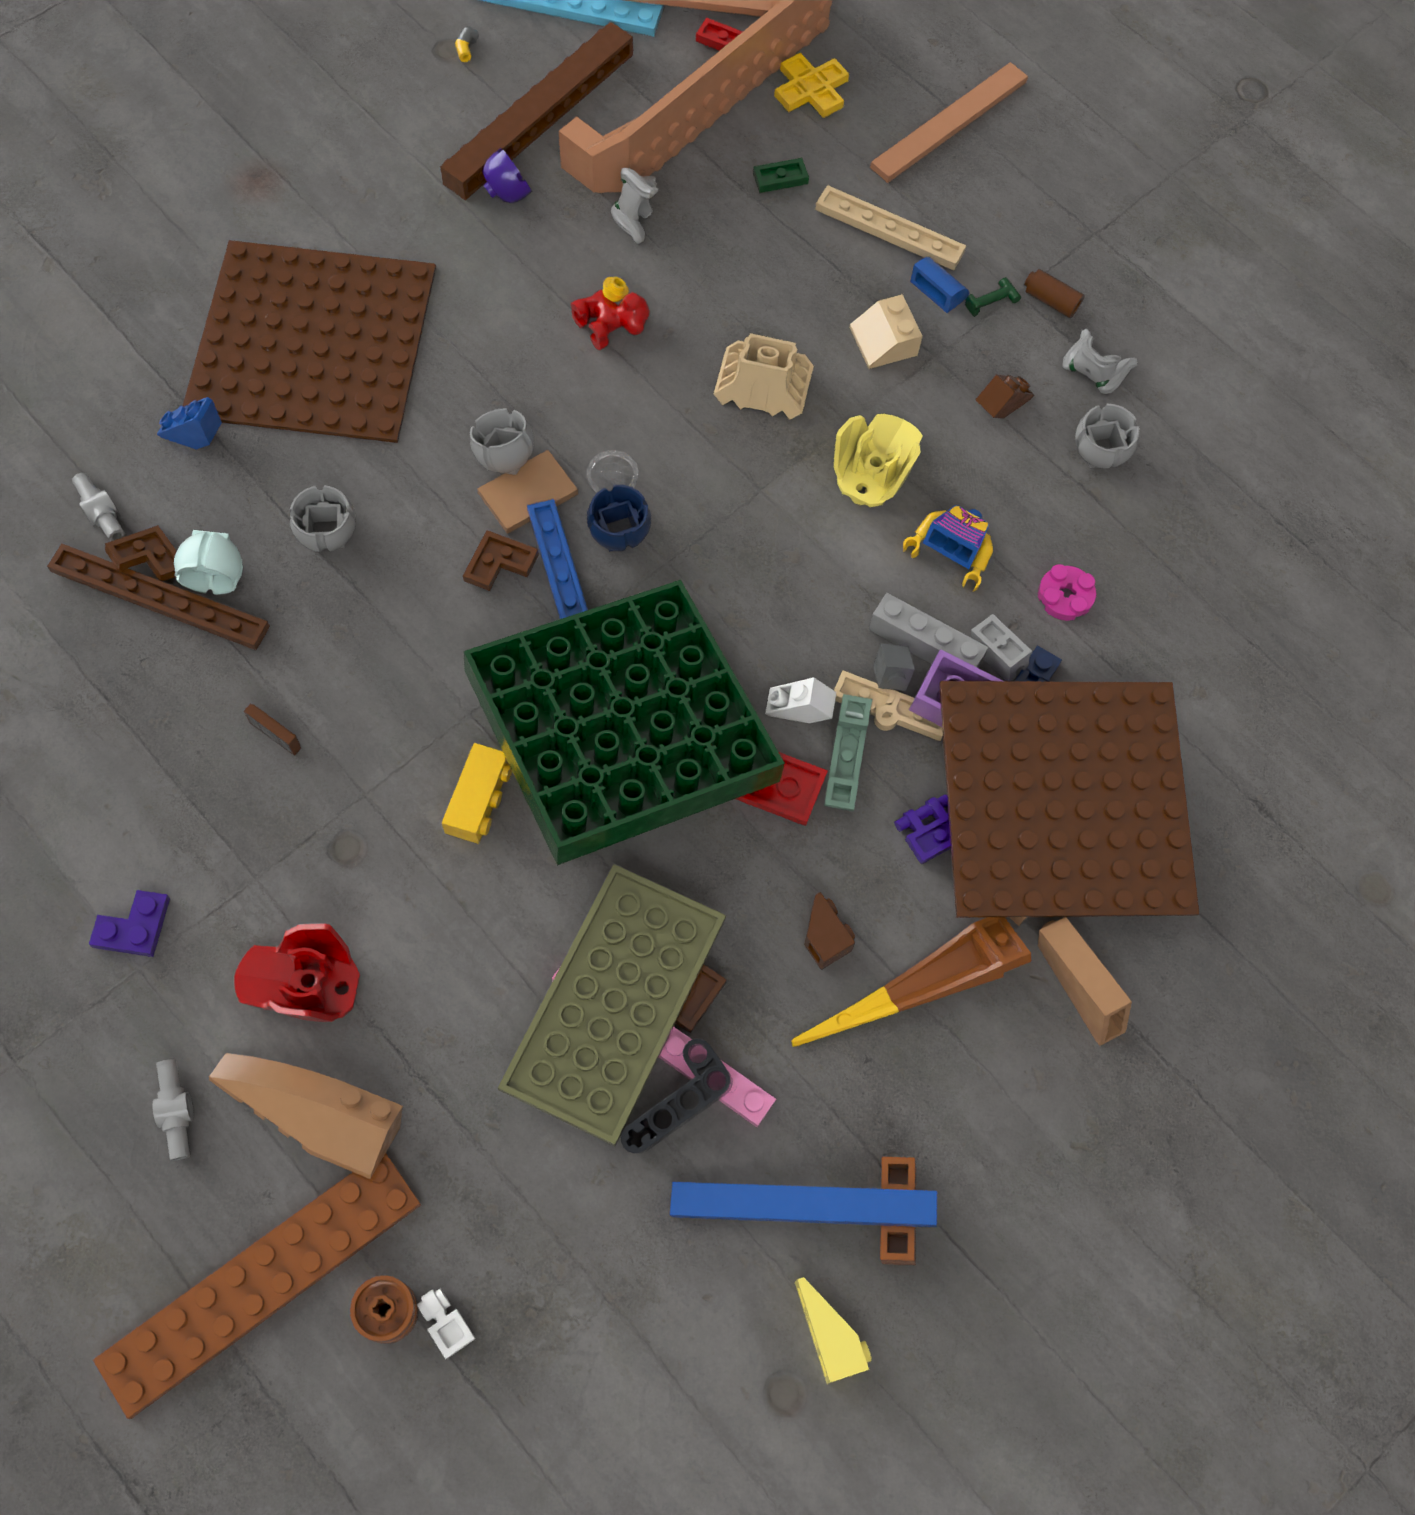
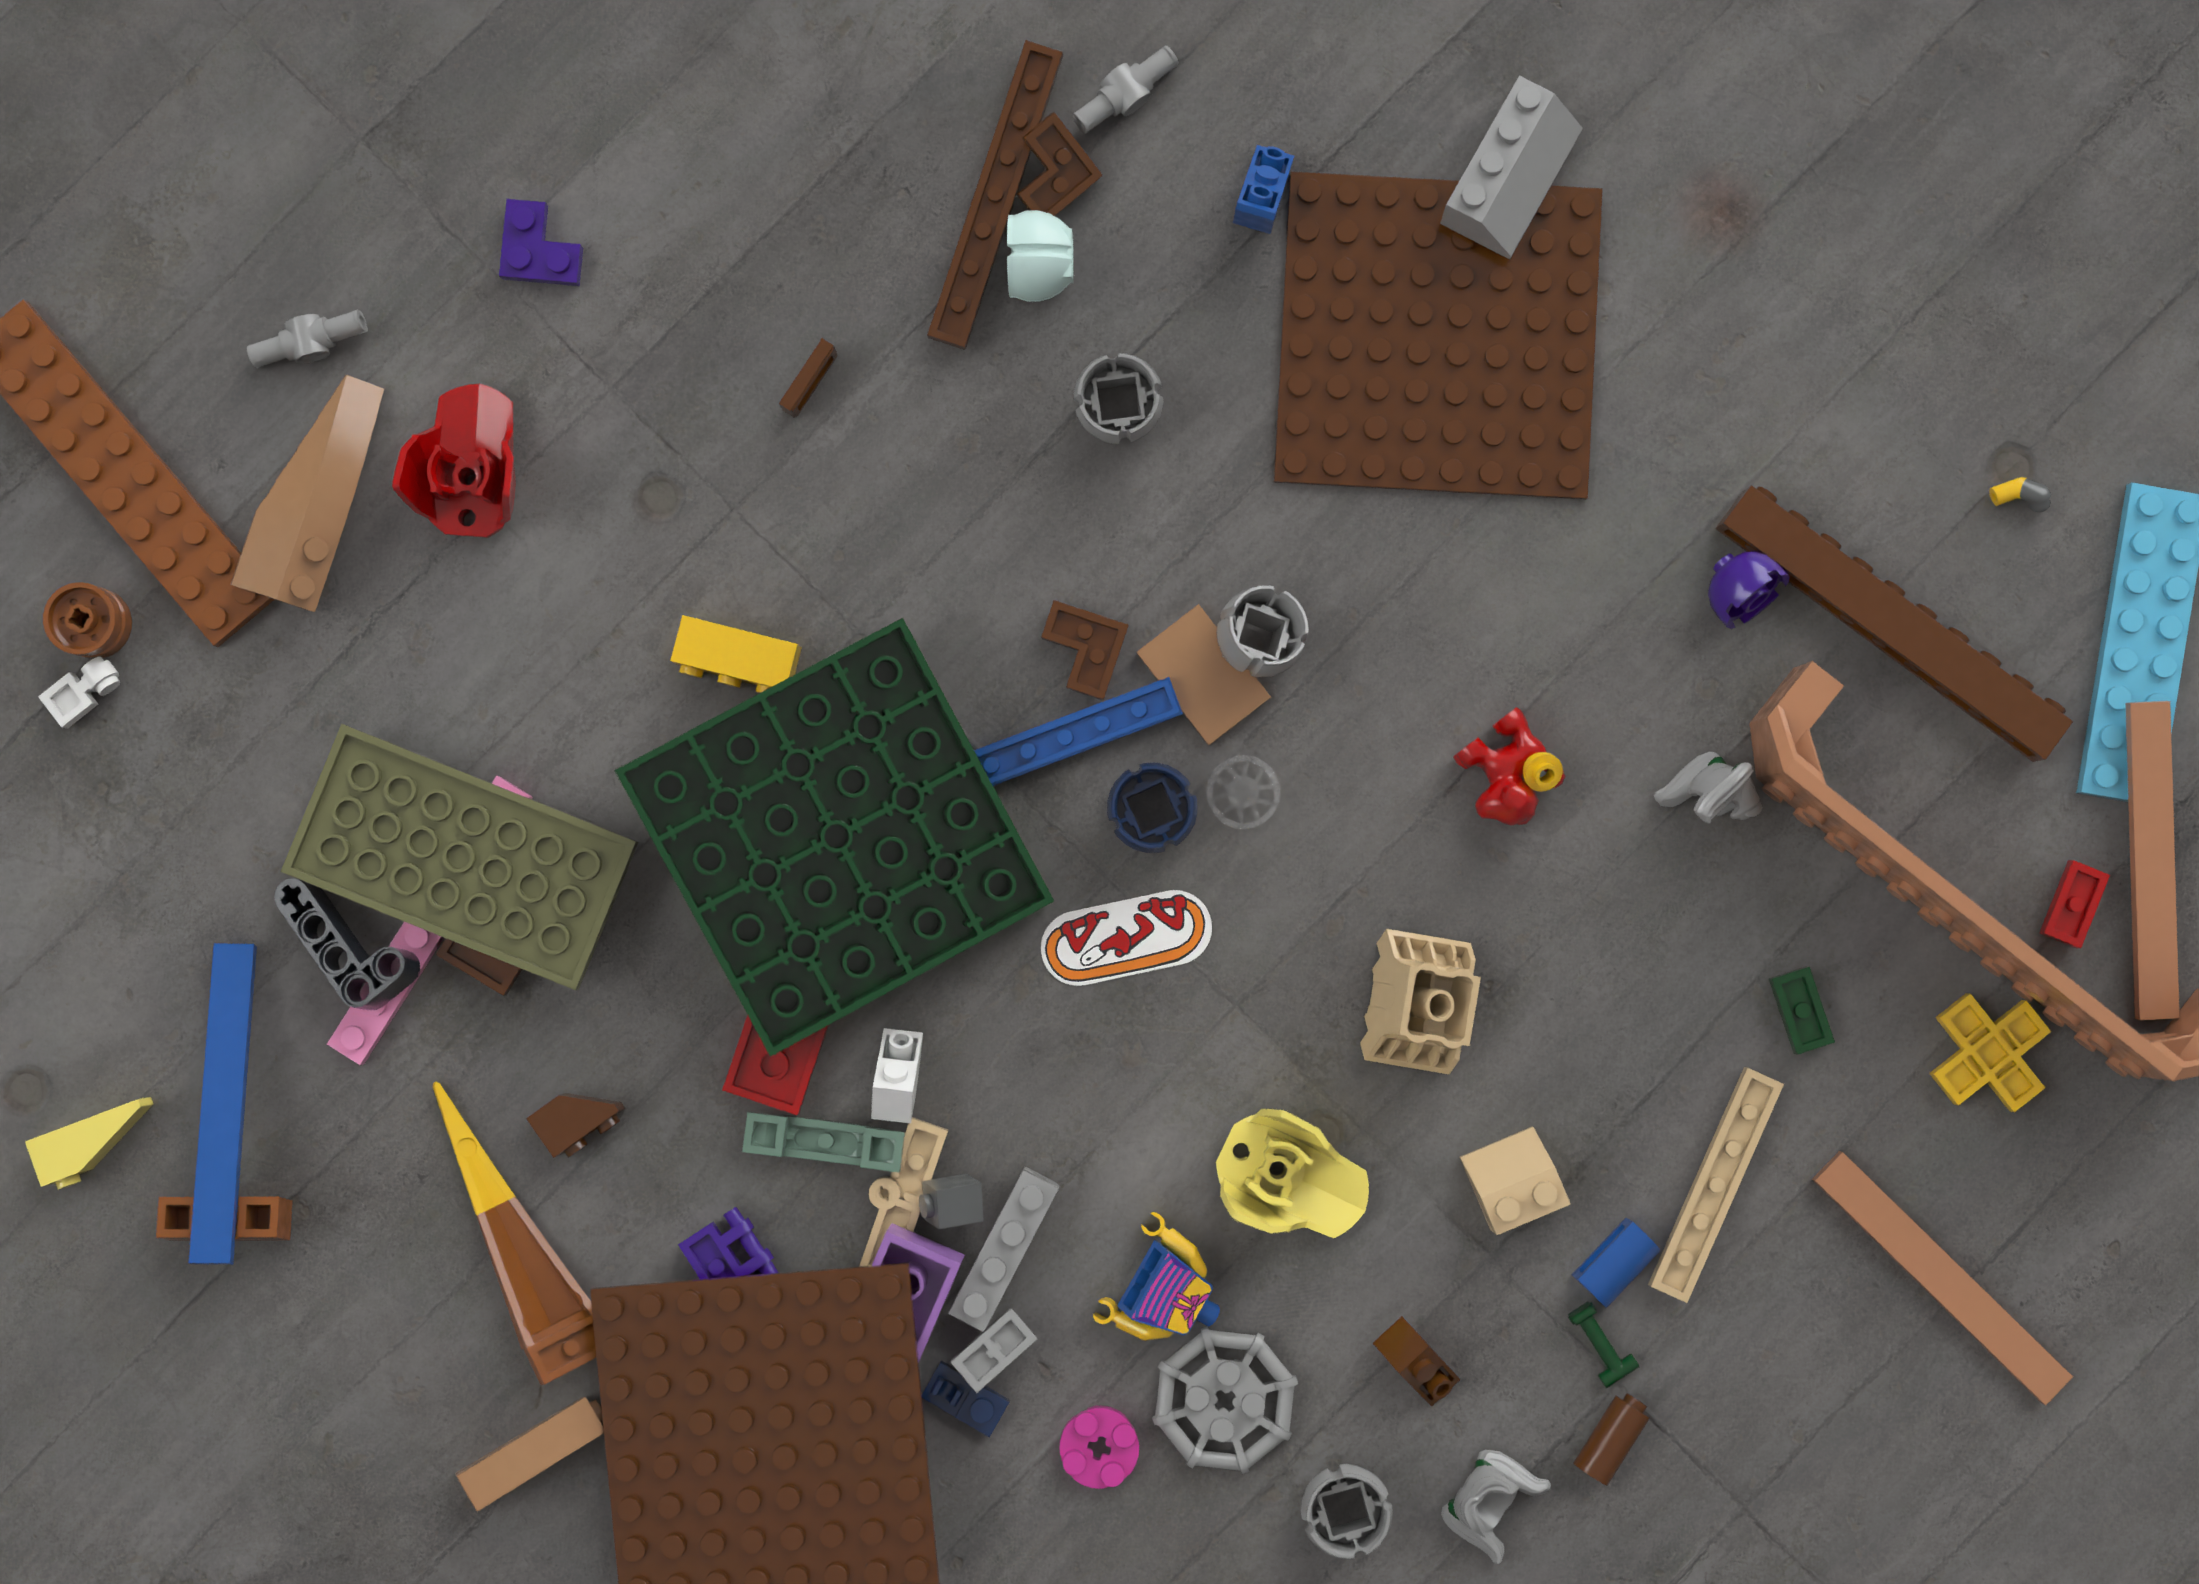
camera: 95 degrees right, 20 degrees up
(203, 282) = (1512, 168): none -> light grey slope
(709, 555) = (1126, 937): none -> sticker
(1035, 499) = (1222, 1423): none -> light grey plate

